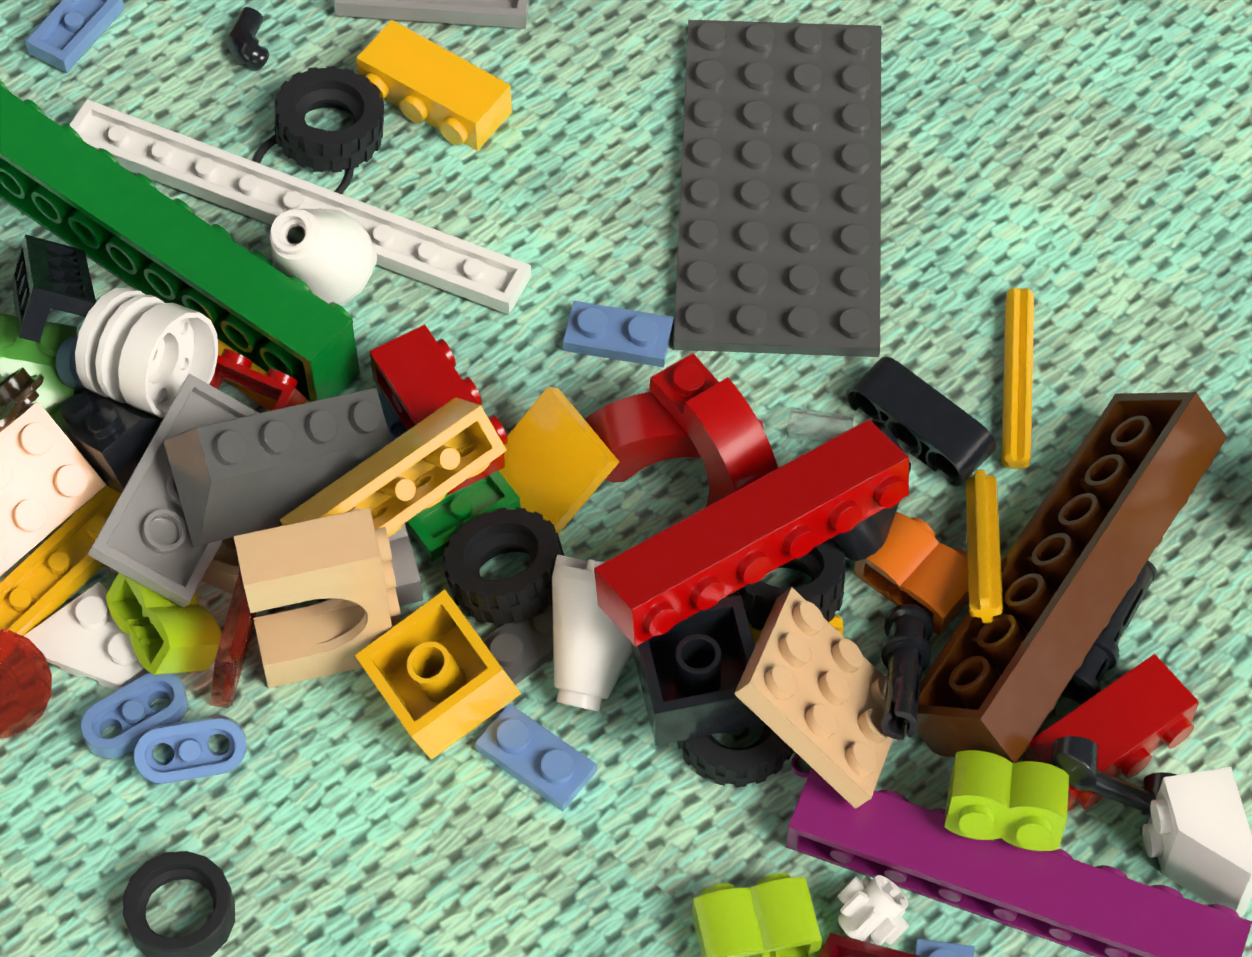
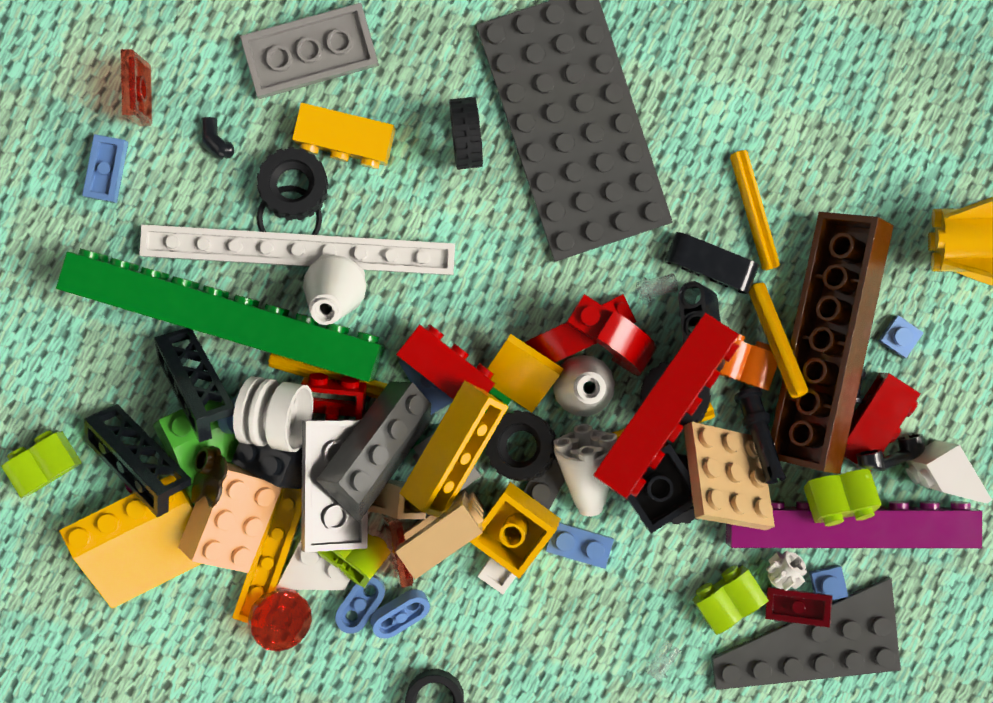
camera: 25 degrees left, 30 degrees up
(383, 746) = (496, 576): none -> white plate
(610, 124) = (466, 133): none -> black tyre
(618, 334) = (520, 265): medium blue plate -> none
(639, 501) = (569, 385): none -> white cone
(1199, 630) = (900, 336): none -> light blue plate

